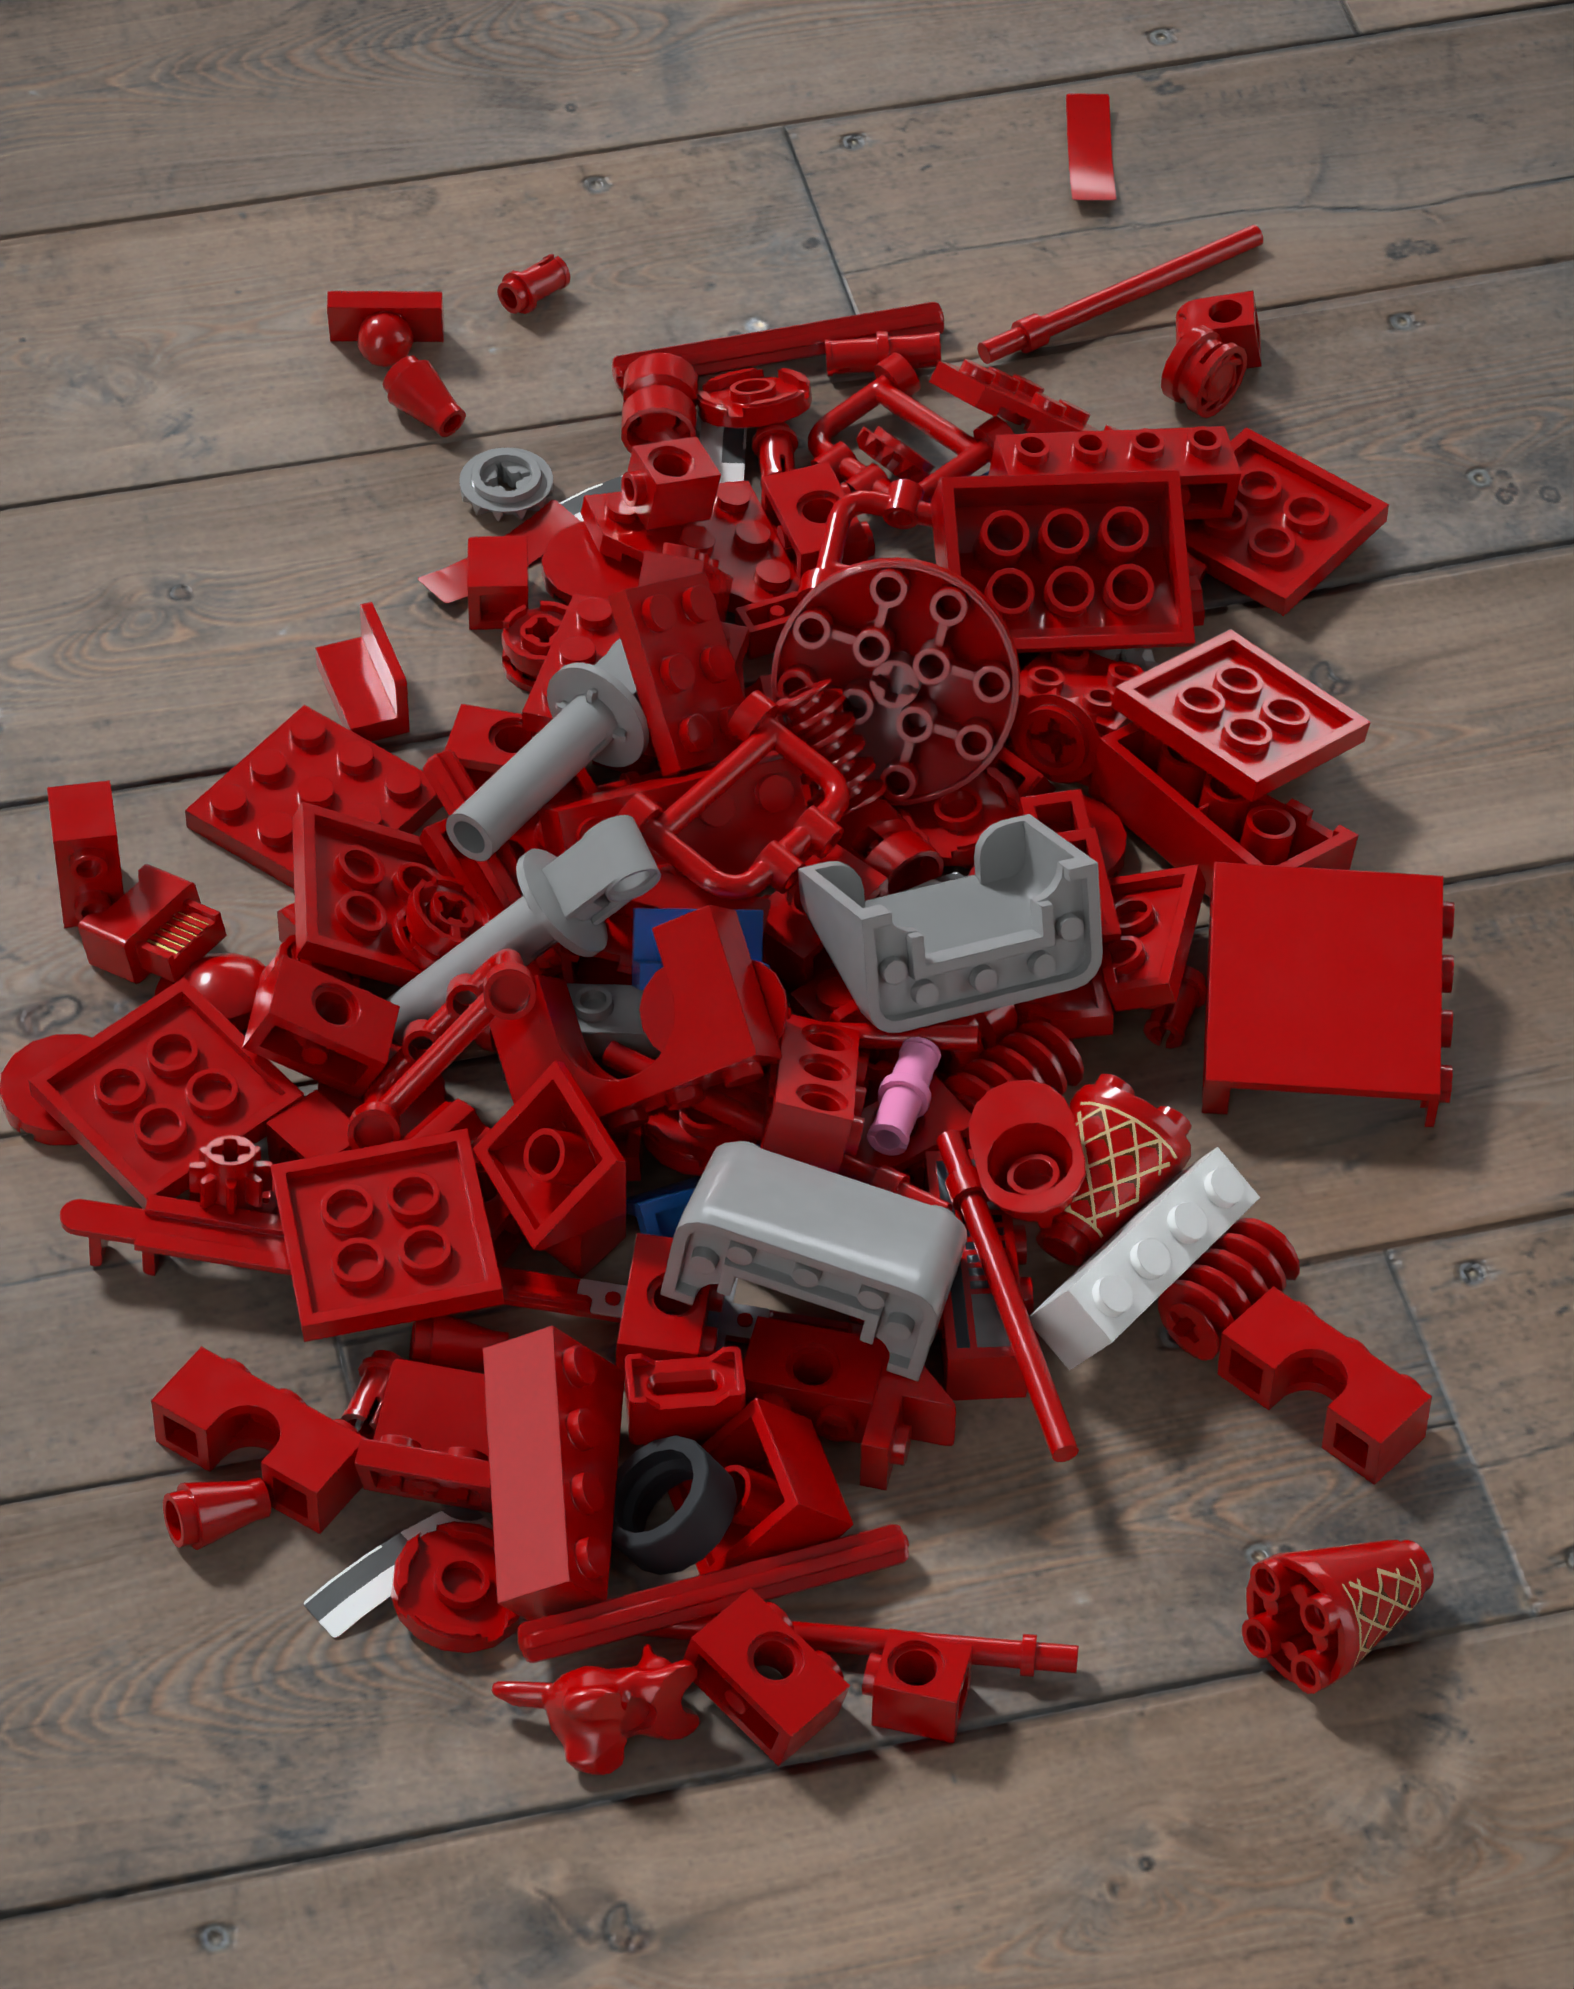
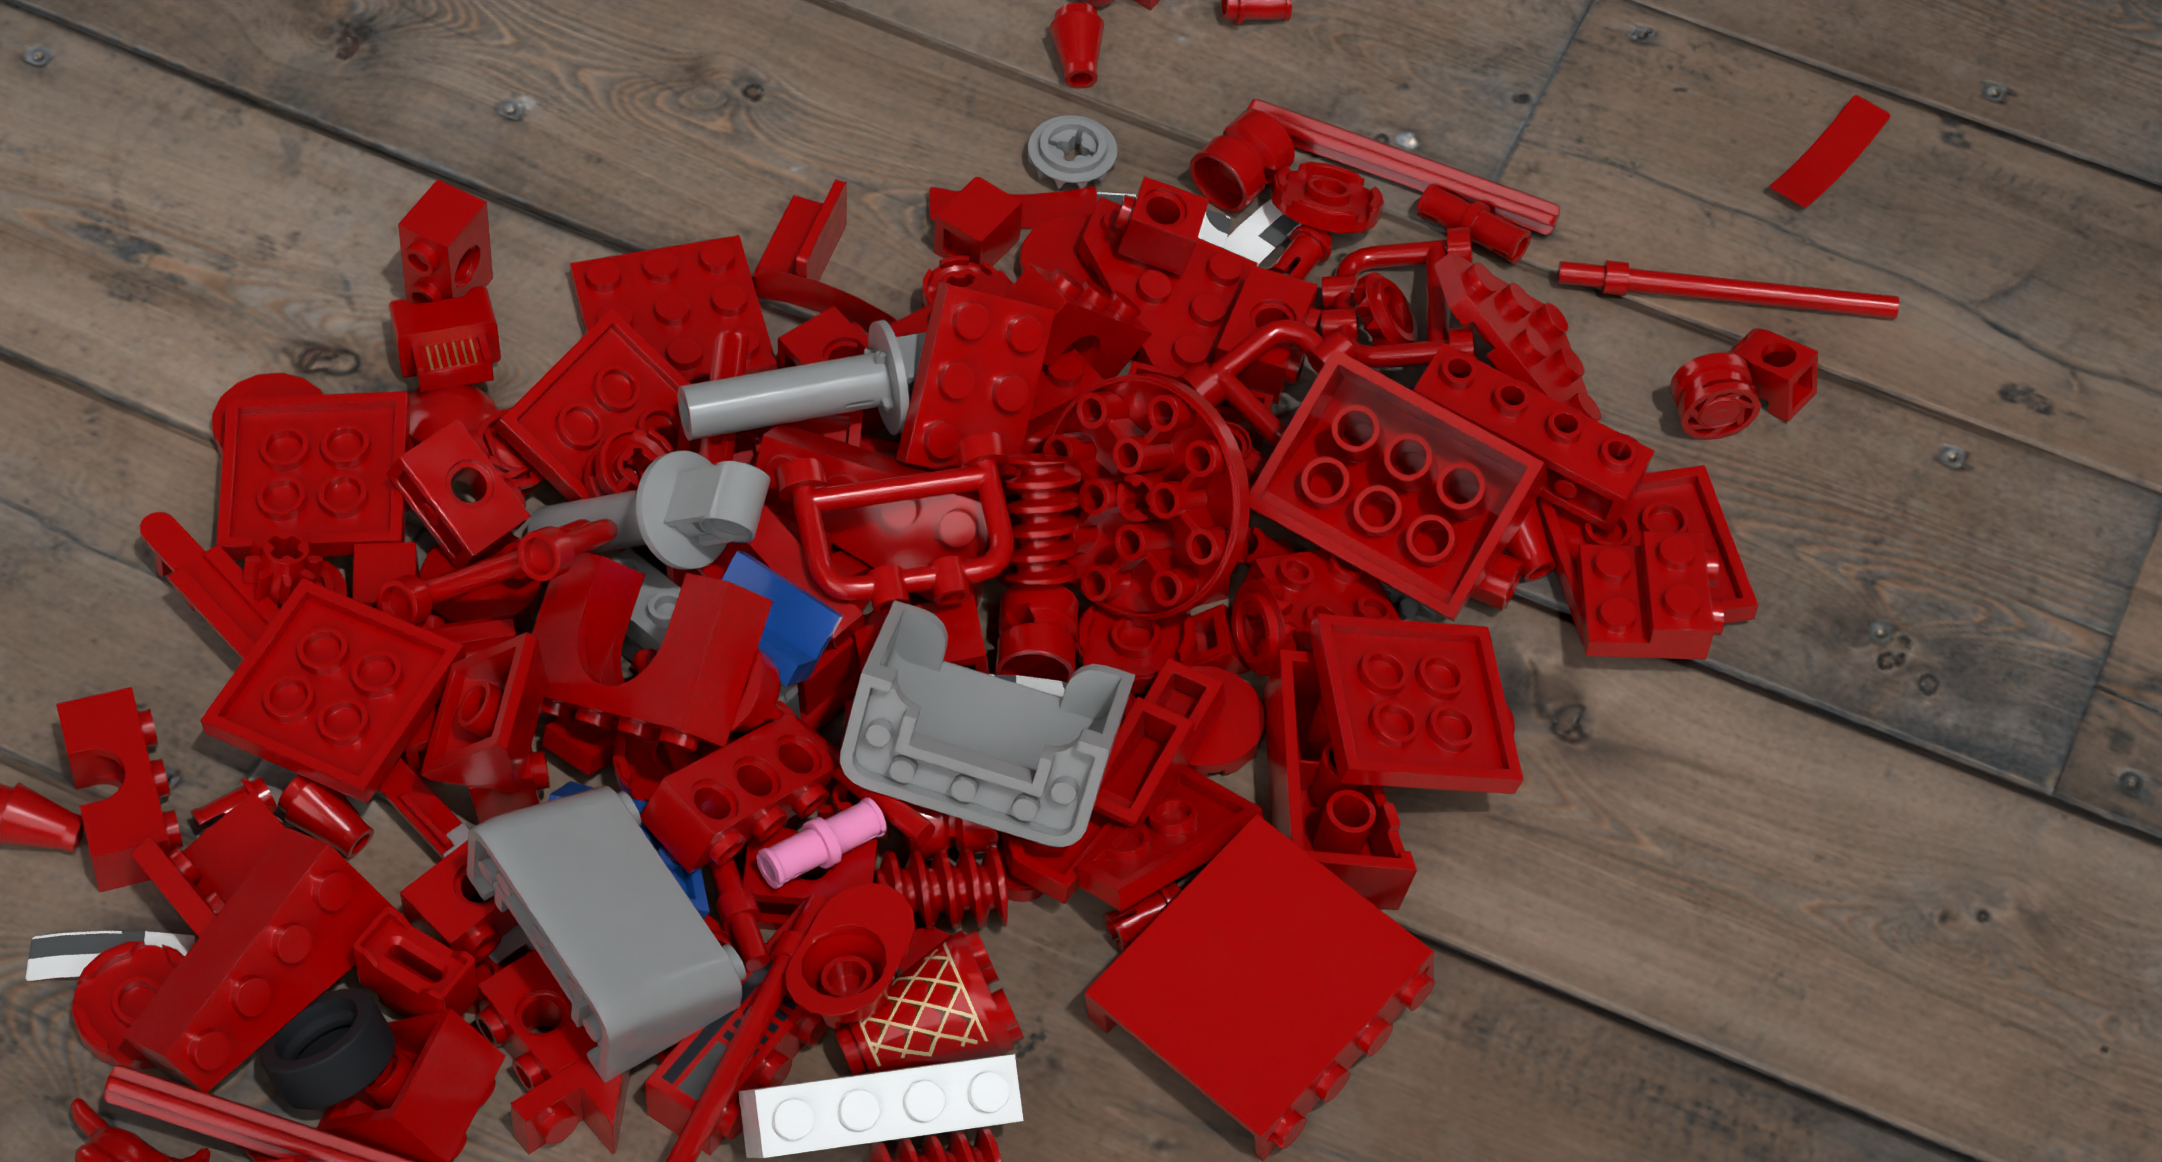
camera: 35 degrees right, 5 degrees up
(435, 711) = (816, 296): none -> red sticker
(1314, 541) = (1650, 597): none -> red plate

